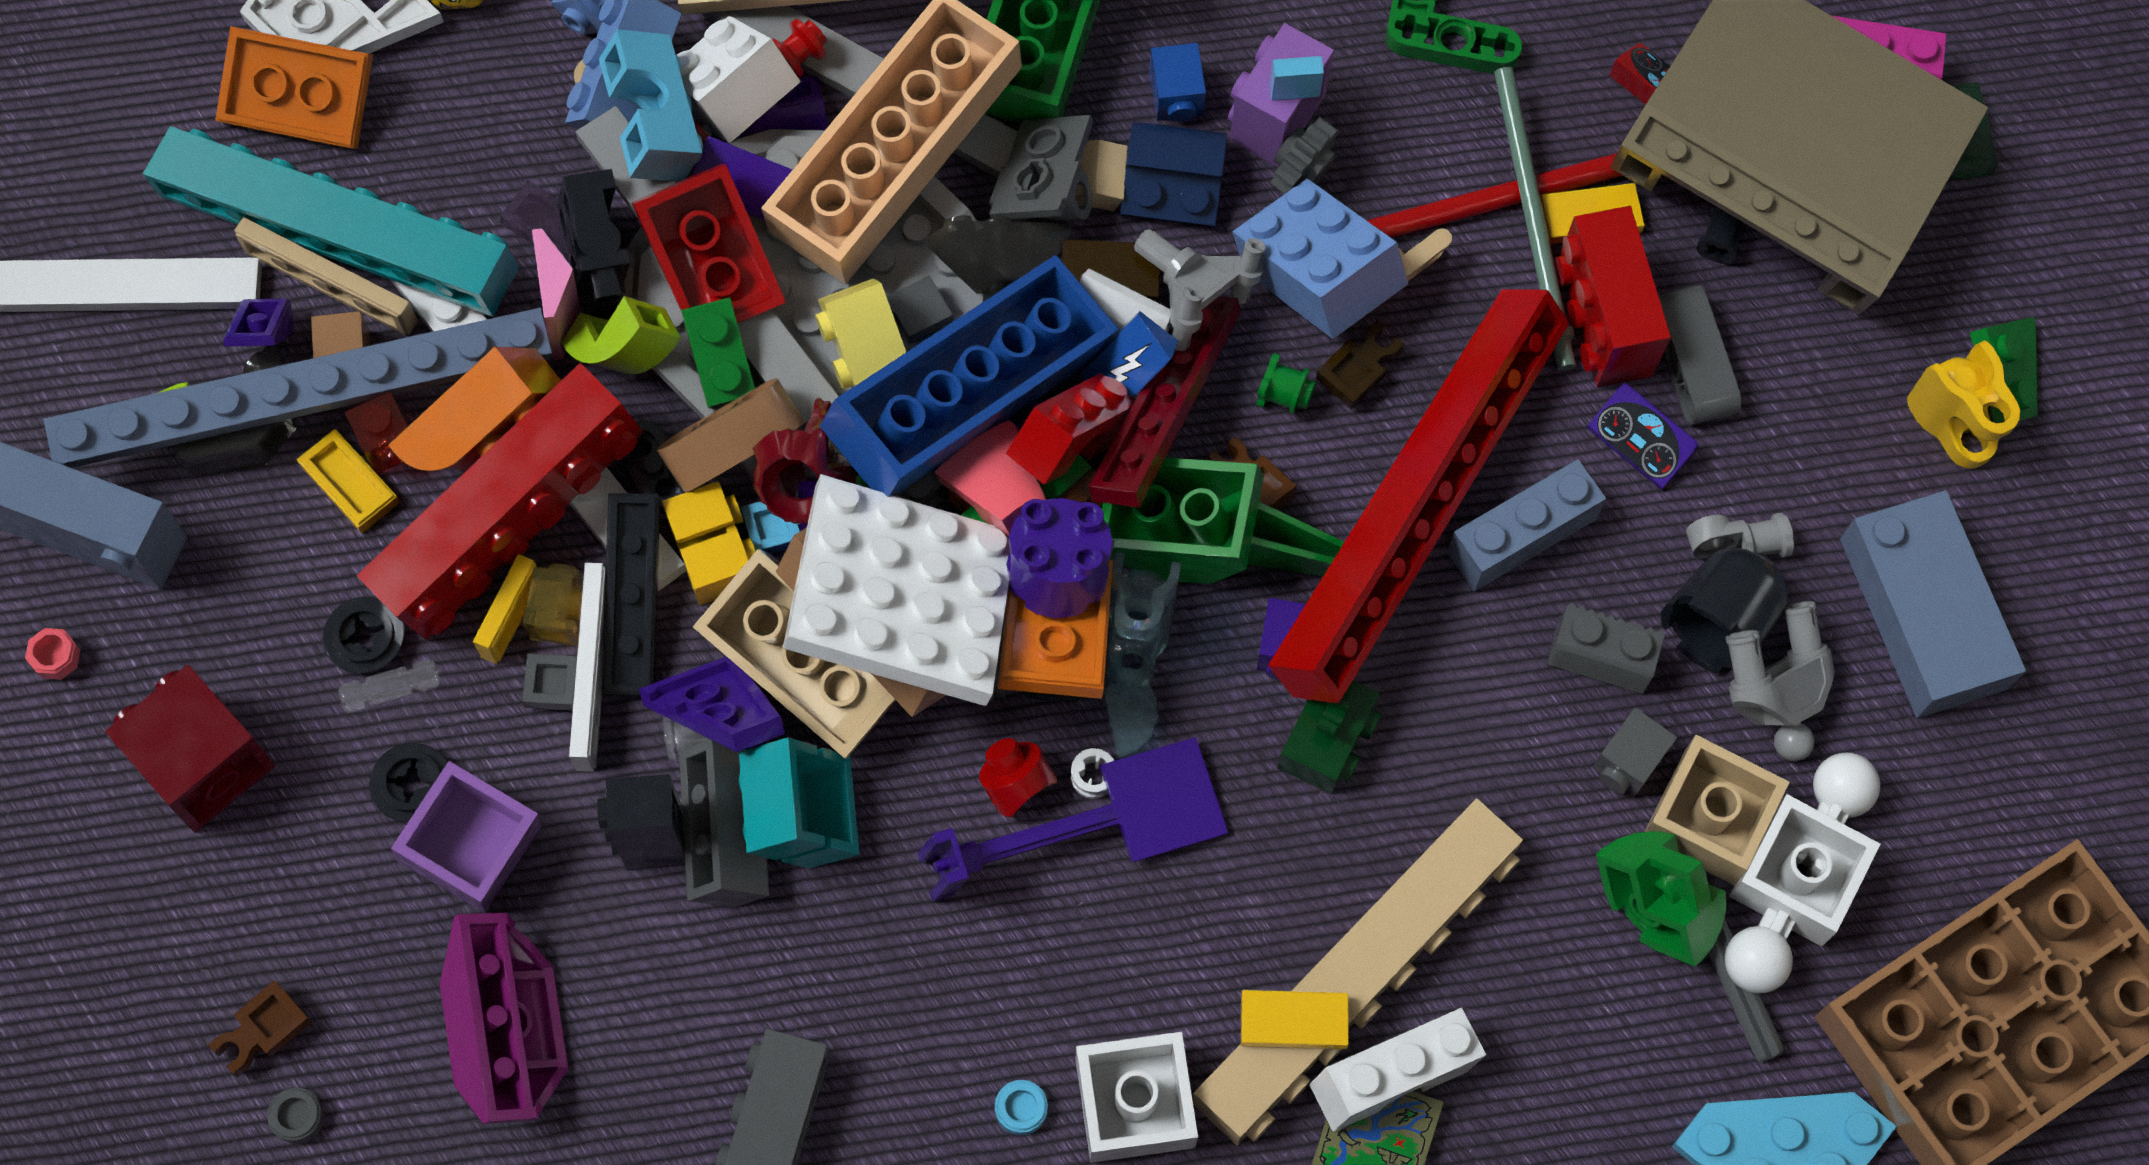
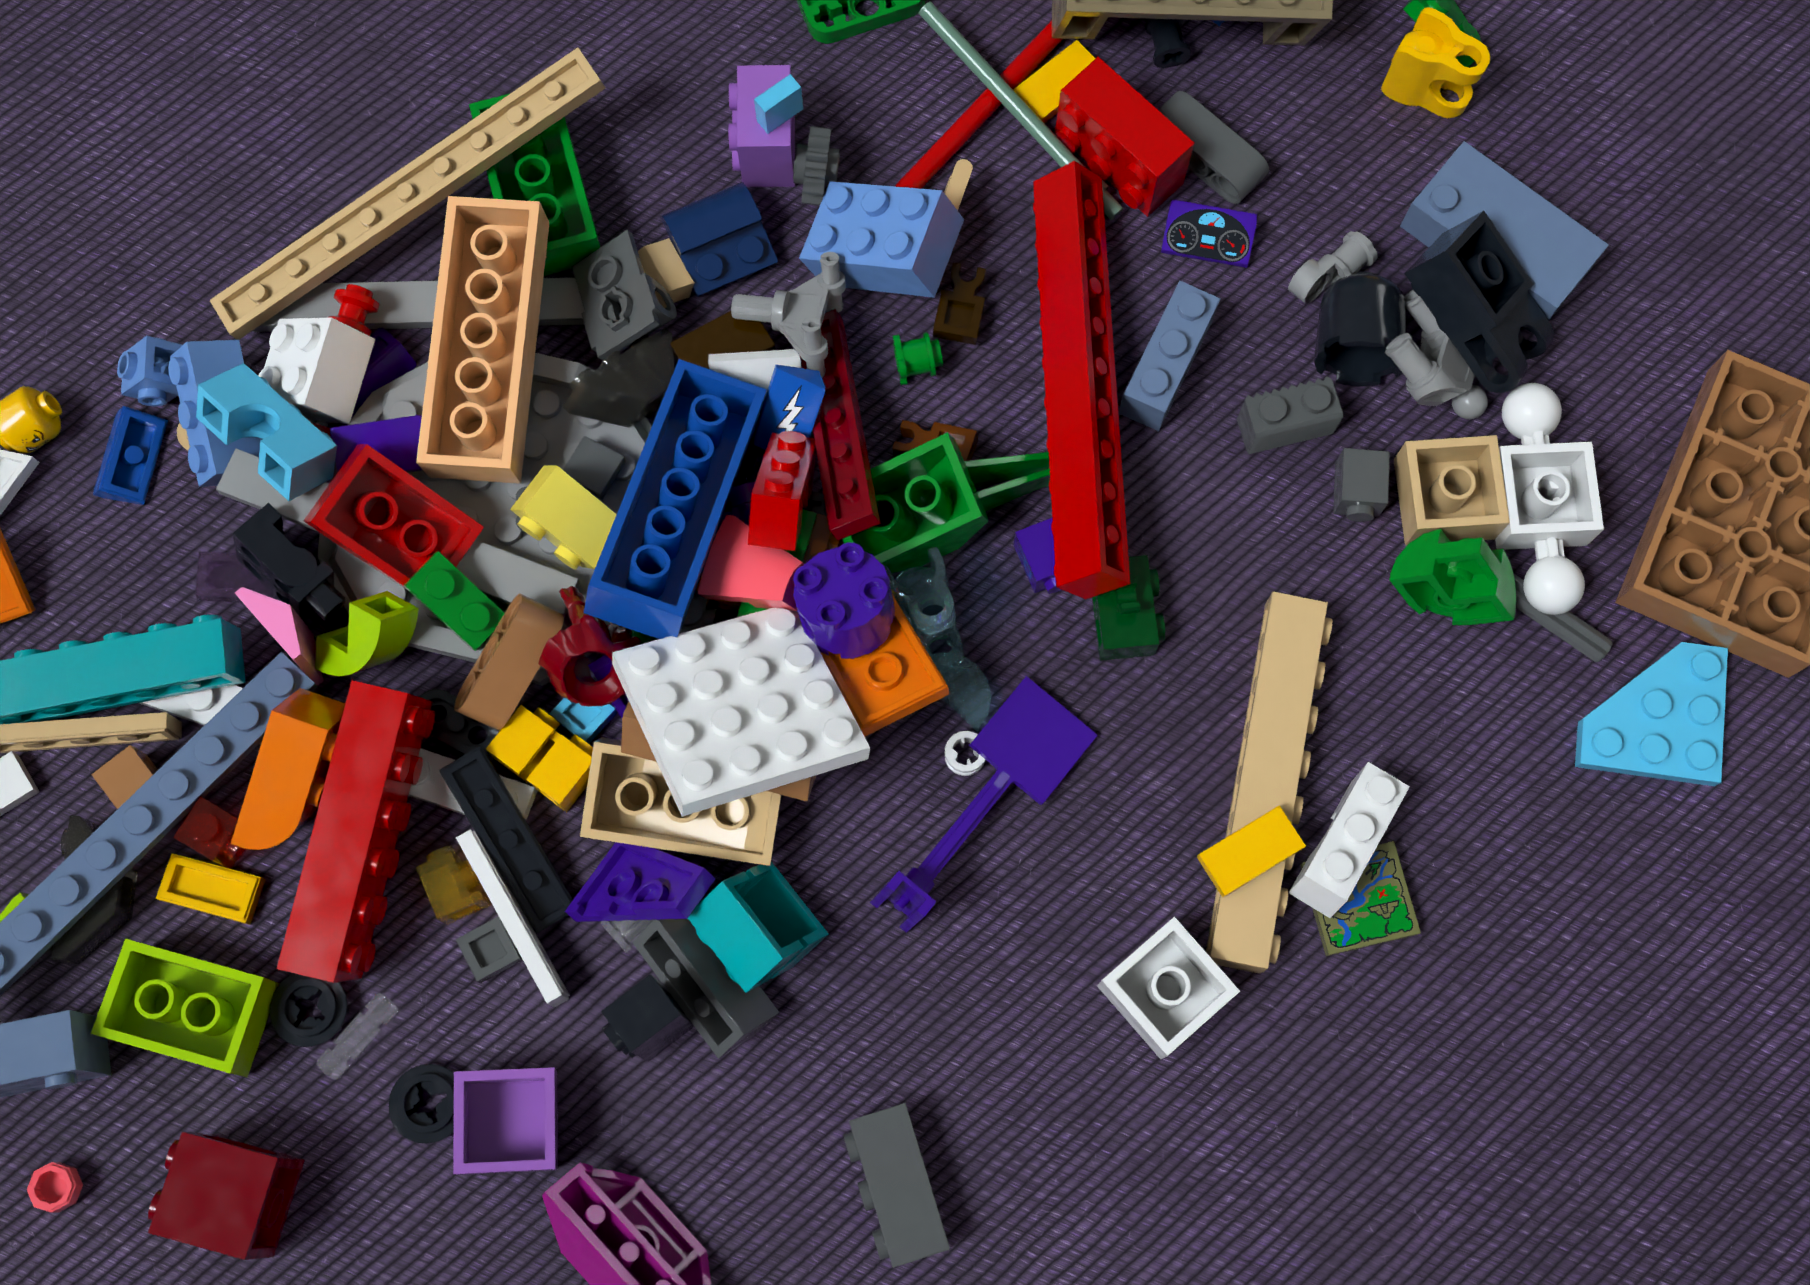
camera: 30 degrees left, 5 degrees up
(260, 323) = (51, 806): dark purple slope -> none
(260, 567) = (185, 1008): none -> lime brick
(505, 611) = (414, 915): yellow tile -> none
(524, 63) = (130, 456): none -> blue slope
(1014, 774) = (908, 793): red piece -> none
(1021, 1107) = (1080, 1050): medium azure tile -> none
(1177, 82) = (675, 164): blue brick -> none
(1860, 651) = (1482, 301): none -> black brick

